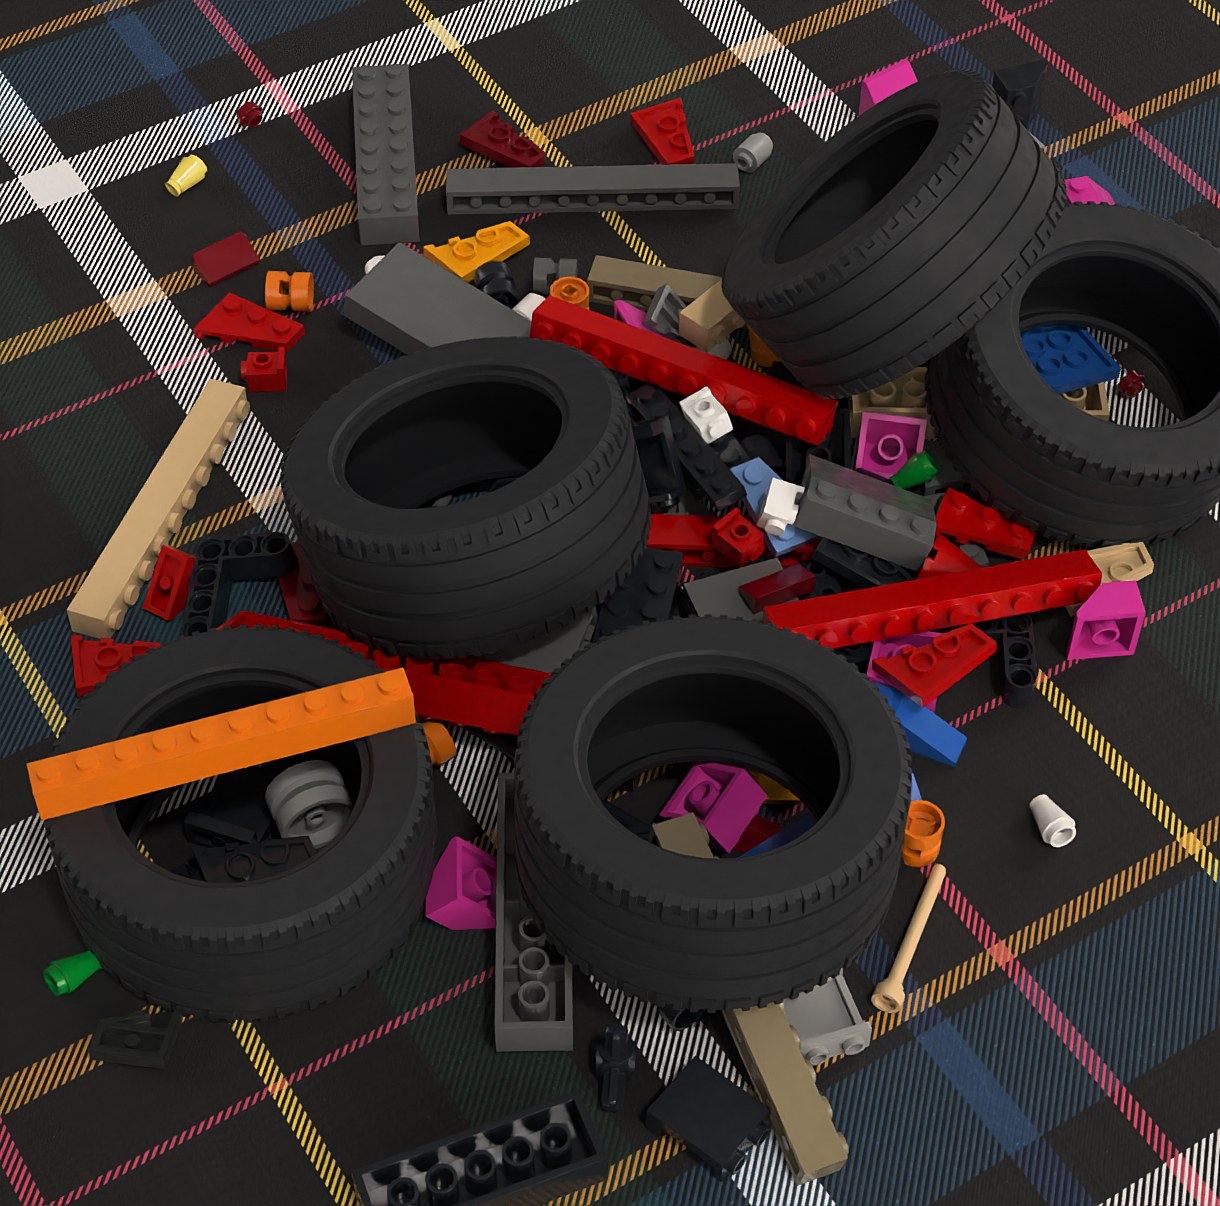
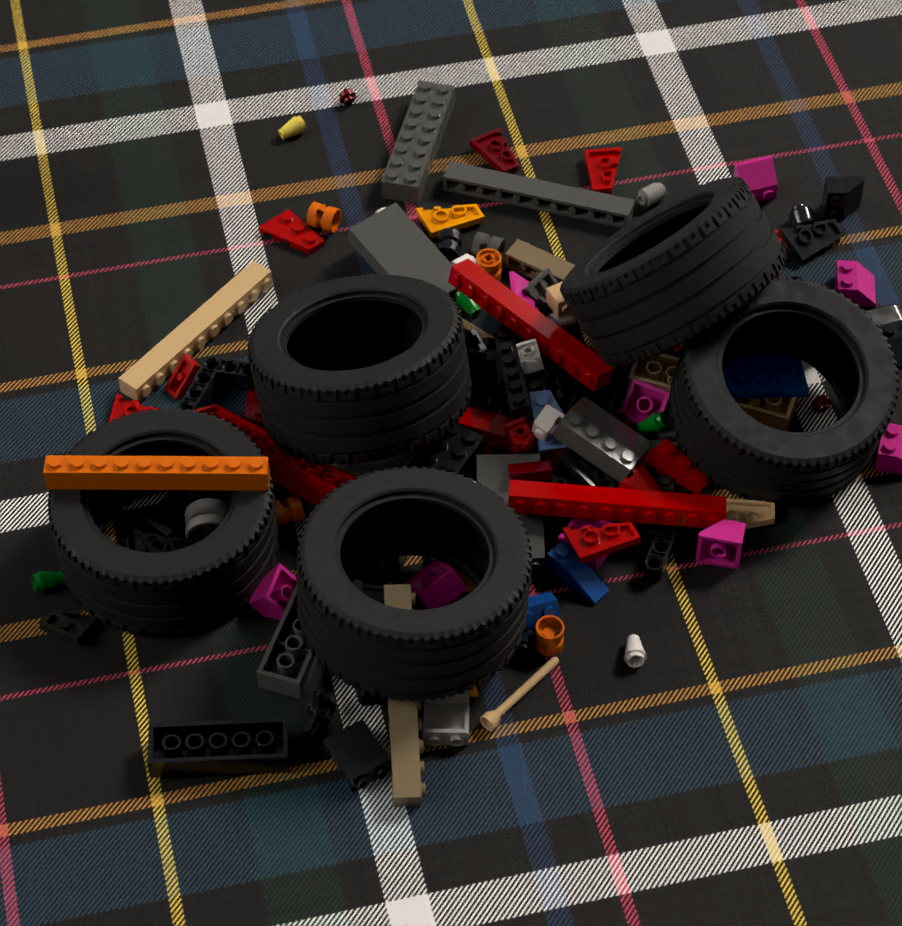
camera: 20 degrees right, 0 degrees up
(224, 259) = (294, 187): dark red slope -> none
(265, 371) = (290, 263): red brick -> none

